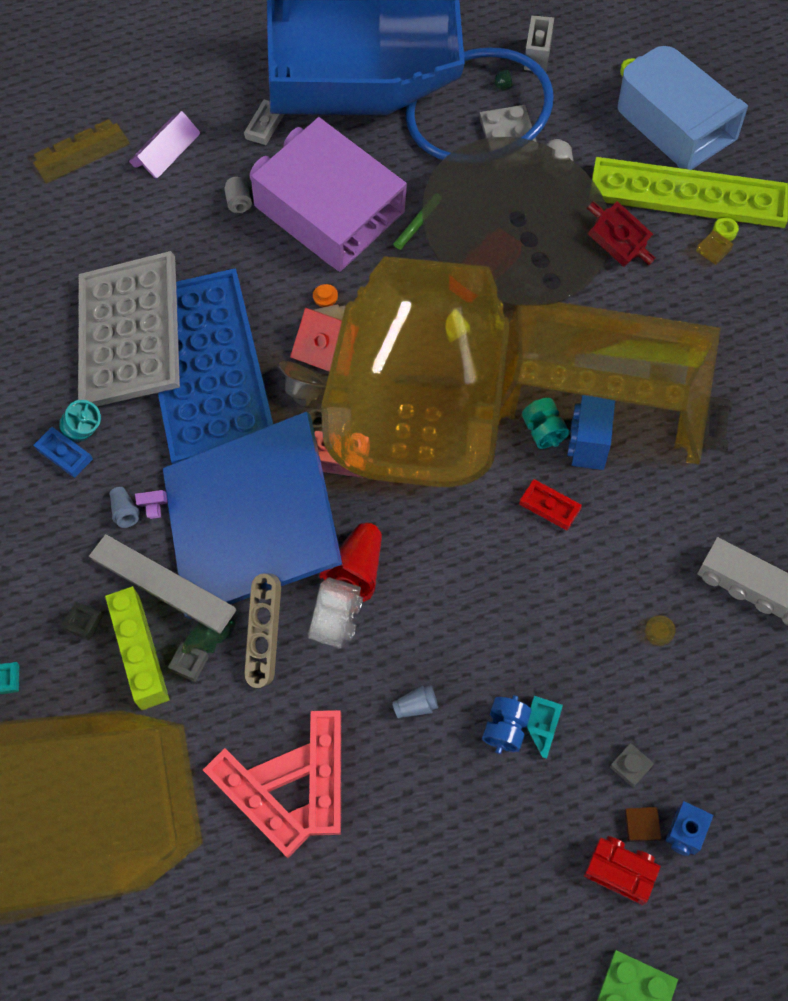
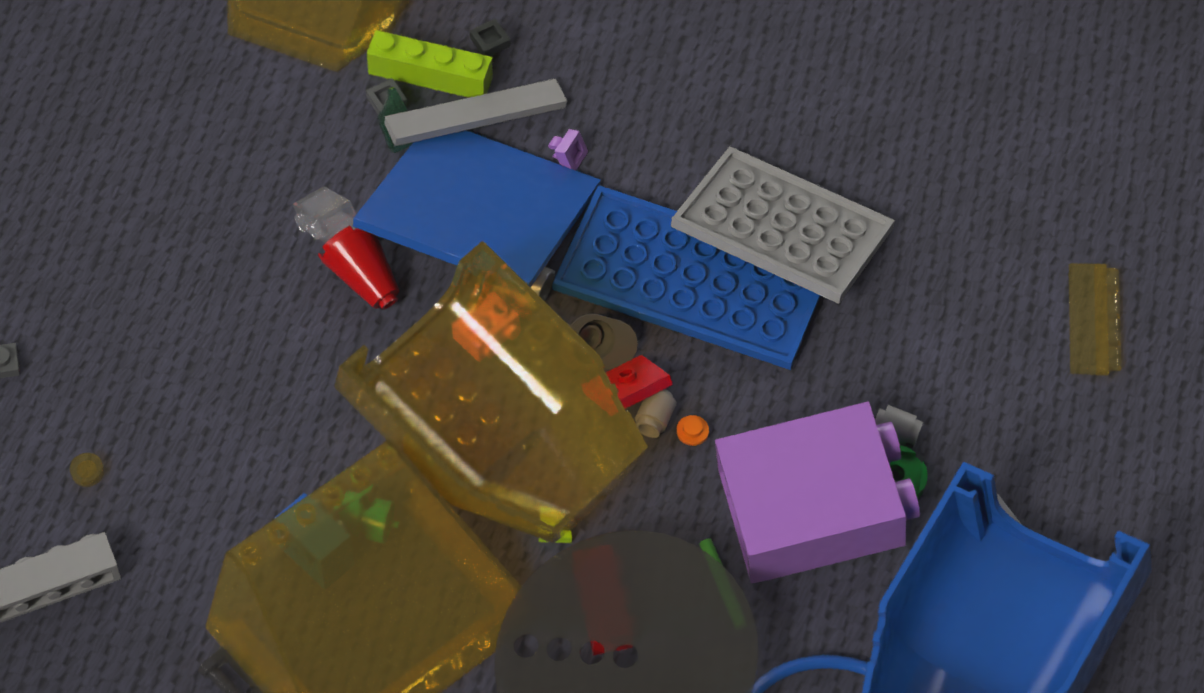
camera: 120 degrees right, 5 degrees down
(63, 452) = (686, 111): blue plate -> none
(80, 420) = (701, 131): teal wheel -> none
(123, 508) = (589, 127): sand blue cone -> none
(166, 145) = (1034, 399): panel -> none
(251, 787) = (219, 142): coral plate -> none
(257, 629) = (358, 153): dark tan beam -> none
(416, 702) = (198, 238): sand blue cone -> none
(505, 729) = (116, 285): blue wheel -> none
(543, 723) = (96, 321): teal slope -> none
(550, 504) = (281, 466): red plate -> none

